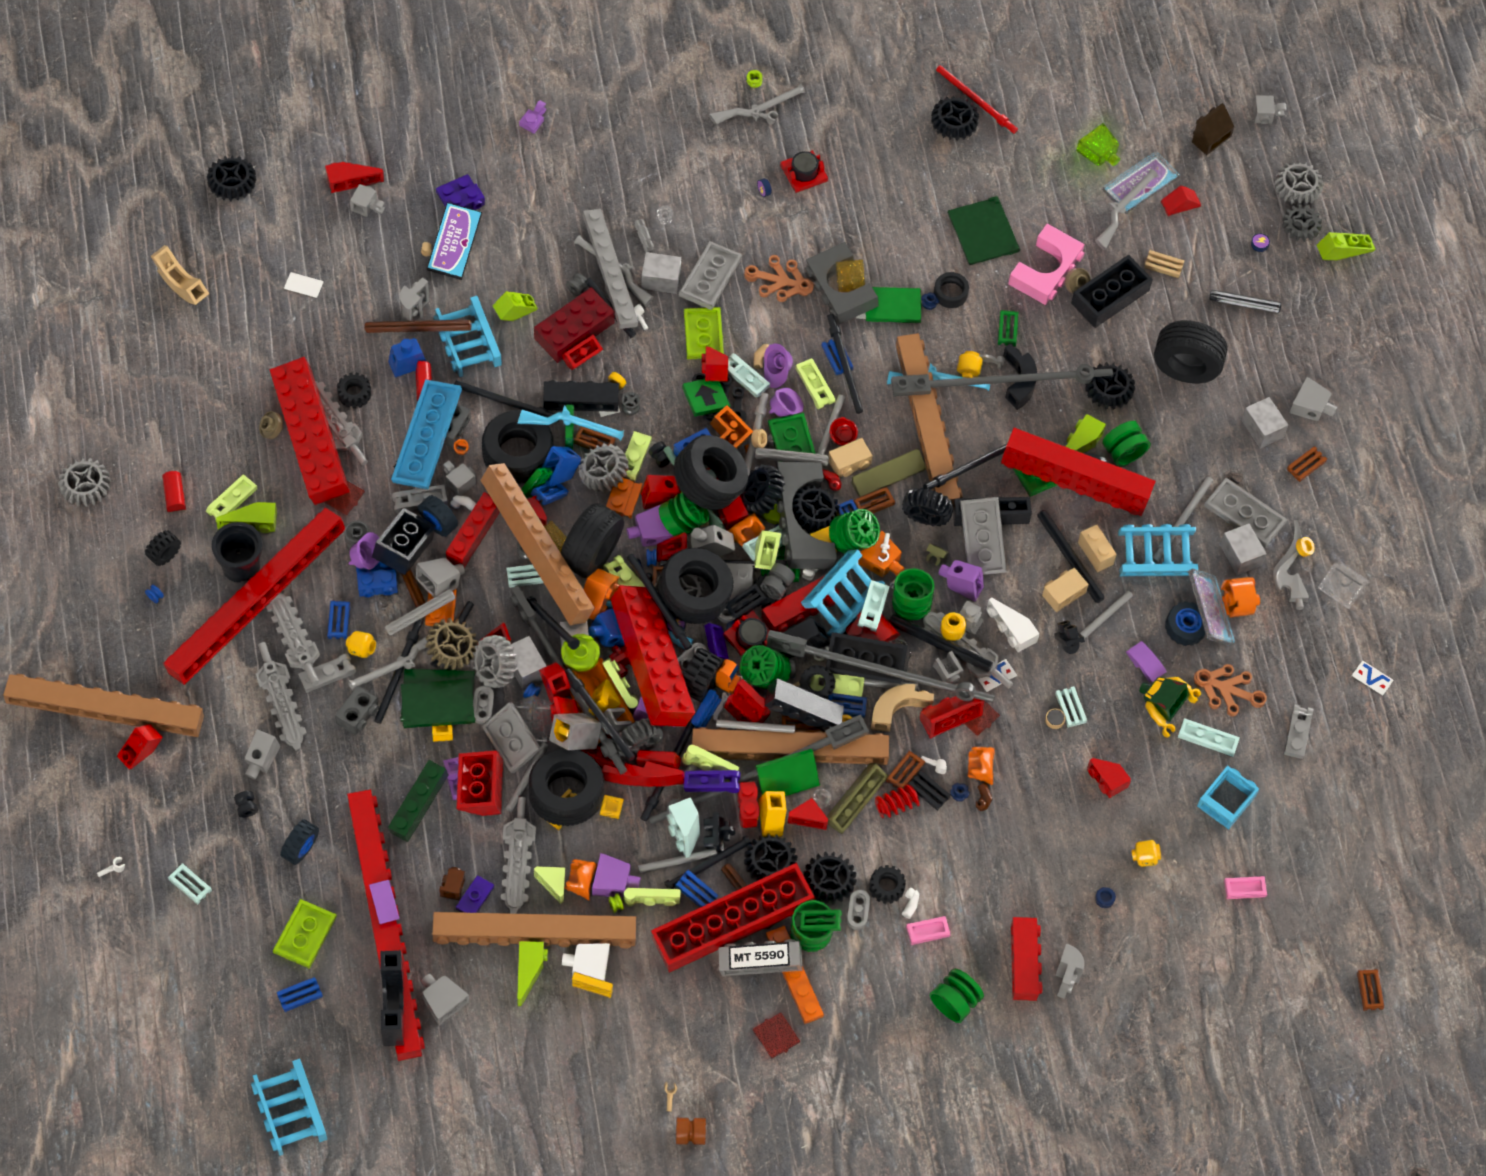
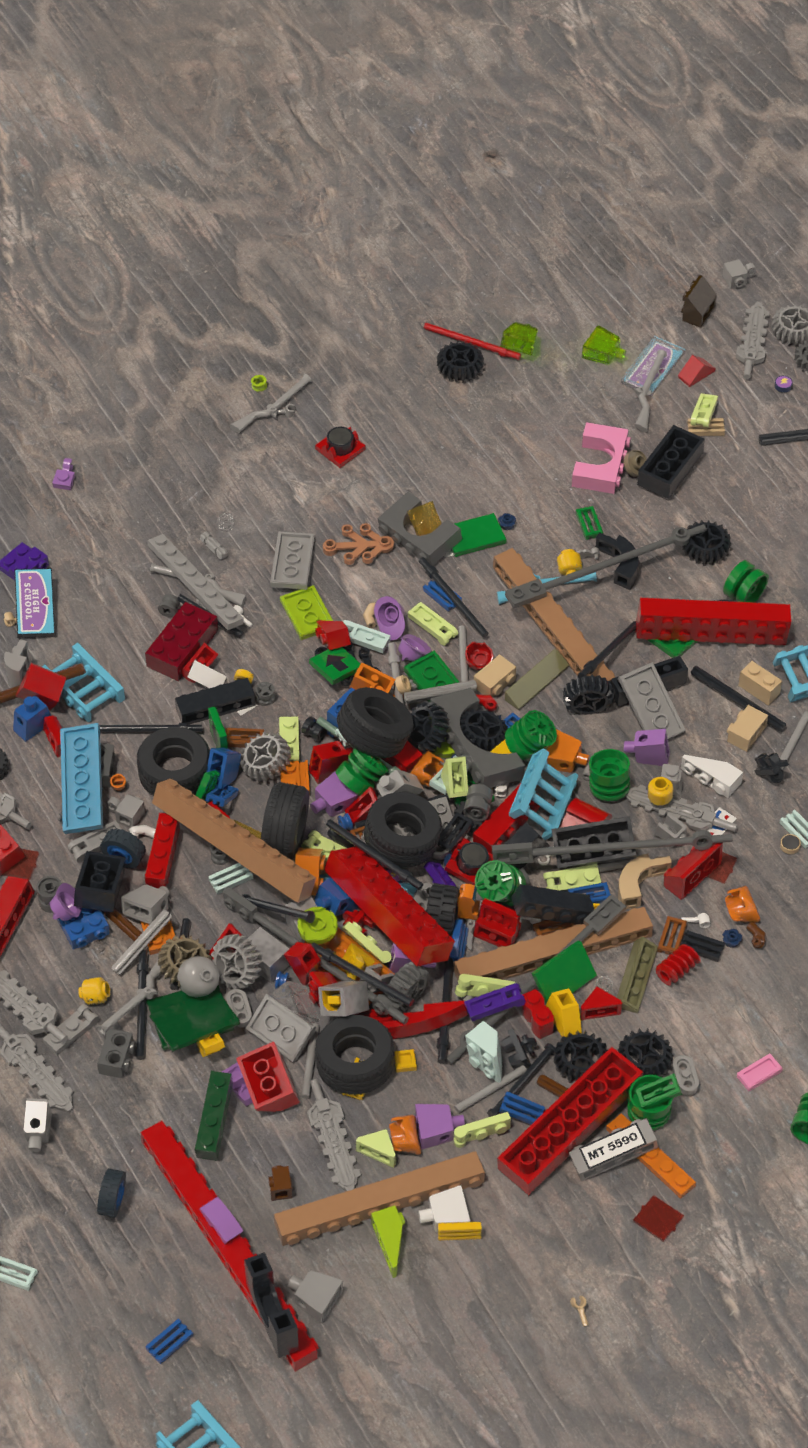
camera: 15 degrees left, 10 degrees down
(245, 804) = (39, 1176): black wheel -> none
(304, 933) = (150, 1281): lime tile -> none
(338, 634) = (66, 990): blue tile -> none
(426, 329) = (43, 684): none -> red slope
(455, 664) = (198, 976): none -> light grey cylinder
(475, 896) = (306, 1186): dark purple plate -> none
(514, 306) = (116, 642): lime slope -> none
(531, 418) = (180, 730): medium azure piece -> none
(583, 367) = (205, 675): none -> white sticker
(615, 903) = (448, 1147): lime bush -> none
(661, 272) = (245, 571): flat silver piece -> none
(663, 758) = (440, 995): red brick -> none
(690, 1131) = (616, 1335): dark orange wheel -> none
(755, 726) = (514, 939): light grey bar -> none
(764, 187) = (309, 470): dark blue tile -> none
(820, 670) = (556, 868): black tyre -> none
(873, 605) = (578, 795): light aqua plate -> none
(879, 507) = (546, 705): dark orange tile -> none
(885, 547) = (565, 741): white hand -> none
(890, 873) = (704, 1032): black tyre -> none
(911, 906) = (733, 1058): white arm -> none
(936, 551) = (613, 732): olive tile -> none
(941, 643) = (654, 810): black axle -> none
(955, 278) = (523, 495): black tyre -> none
(983, 230) = (529, 448): dark green piece -> none
(1022, 112) = (519, 338): none -> clear neon green torso
(1087, 434) = (704, 586): lime slope -> none
(1168, 246) = (704, 410): none -> yellowish green plate
(1190, 351) = (765, 472): black tyre -> none
(1245, 198) = (752, 351): none -> light grey bar

